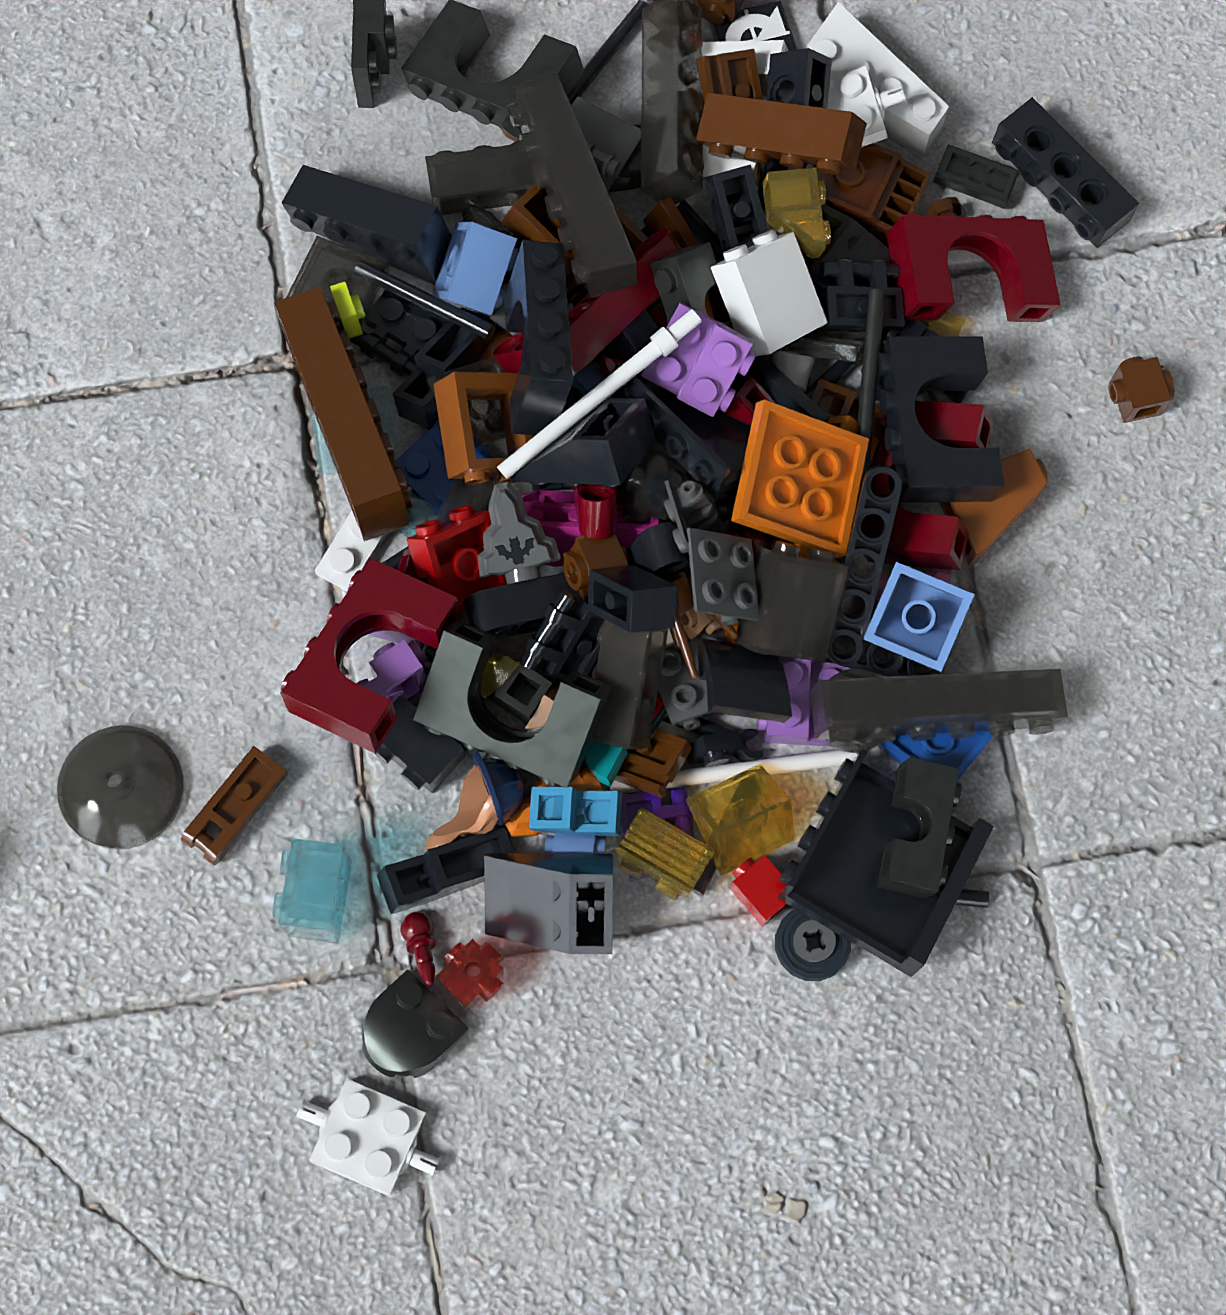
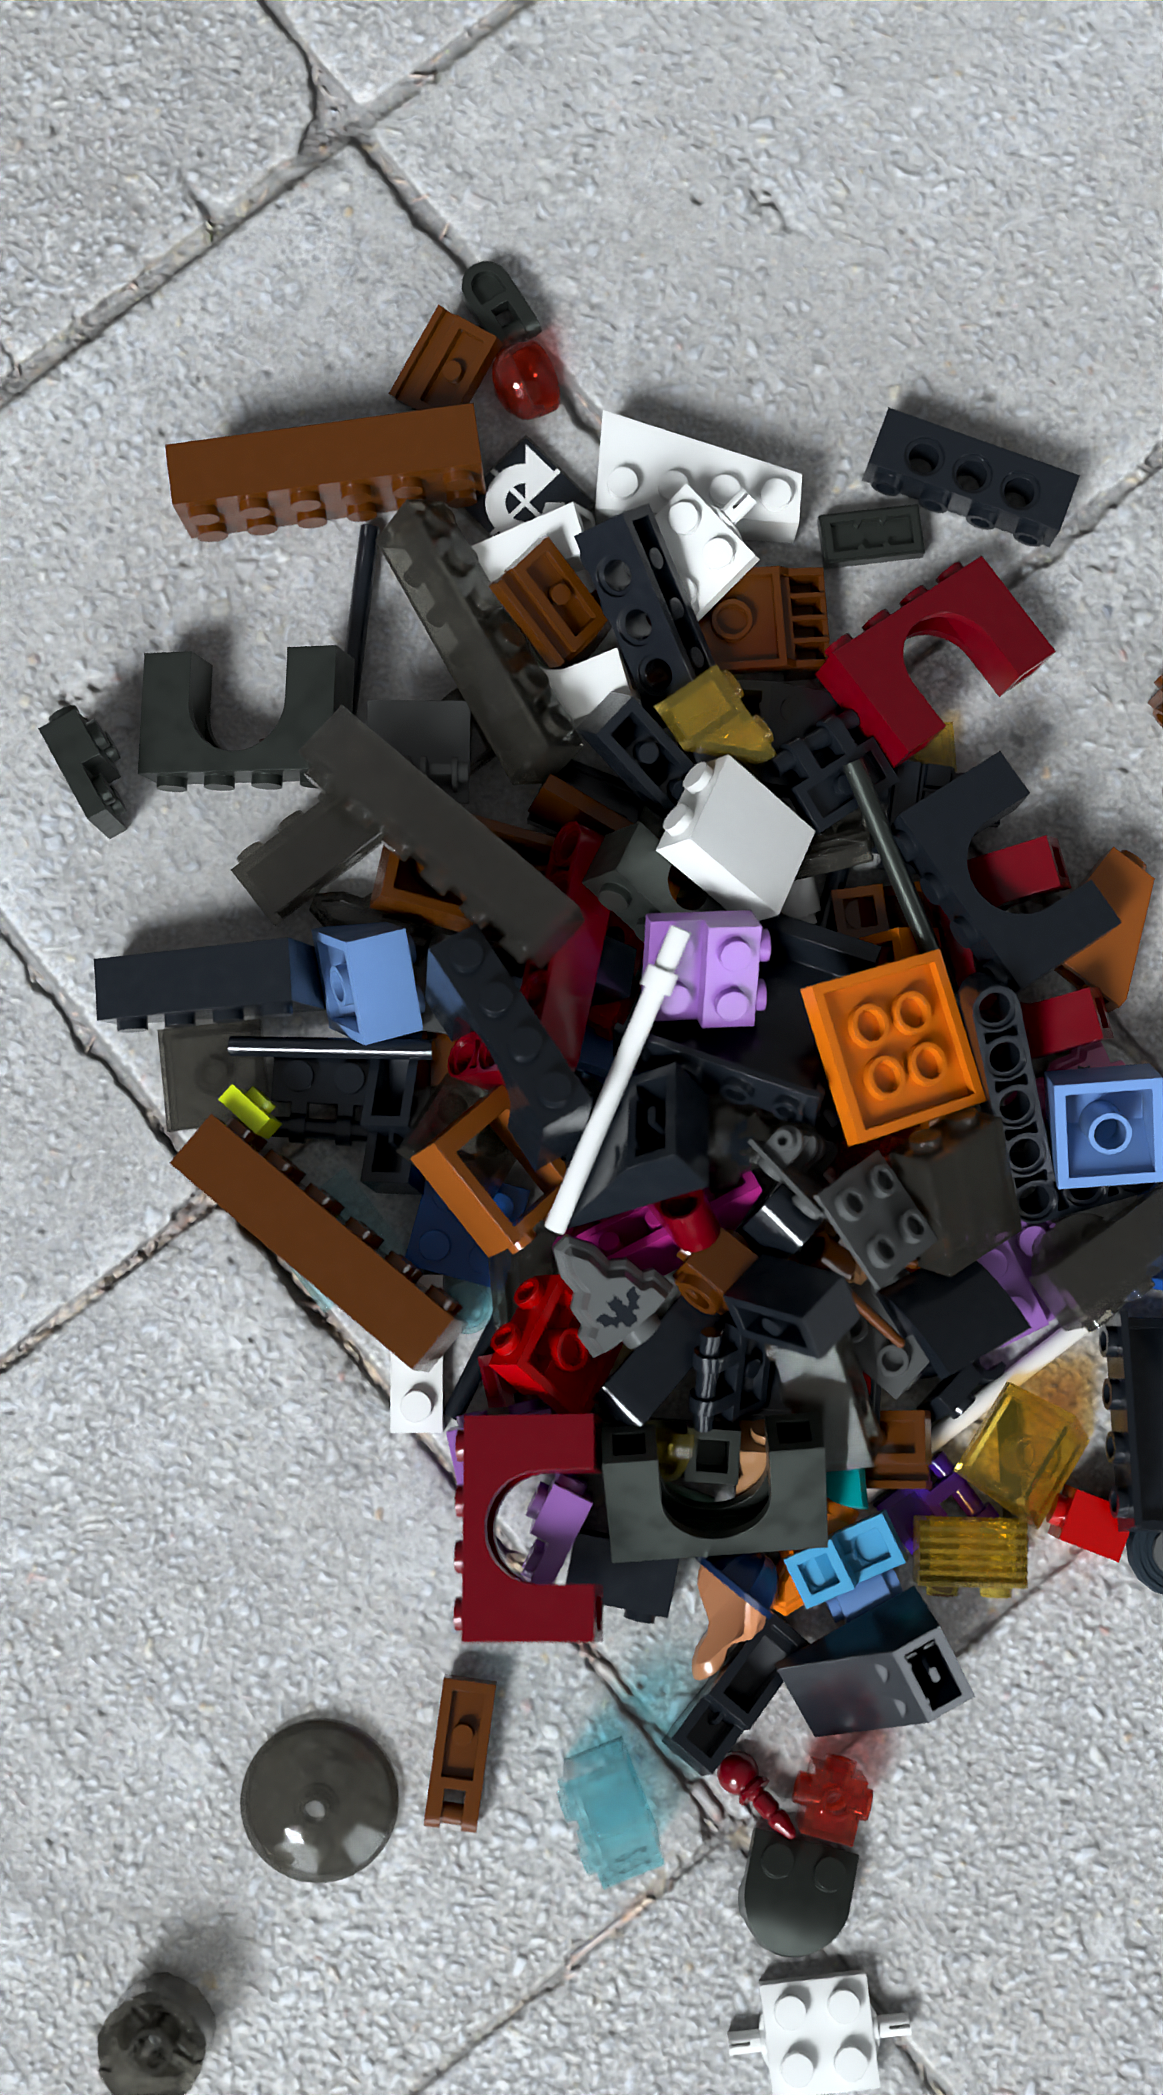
camera: 25 degrees left, 10 degrees up
(745, 399) = (785, 977): dark red slope -> none
(781, 132) = (647, 636): reddish brown brick -> none
(946, 206) = (859, 603): reddish brown tile -> none

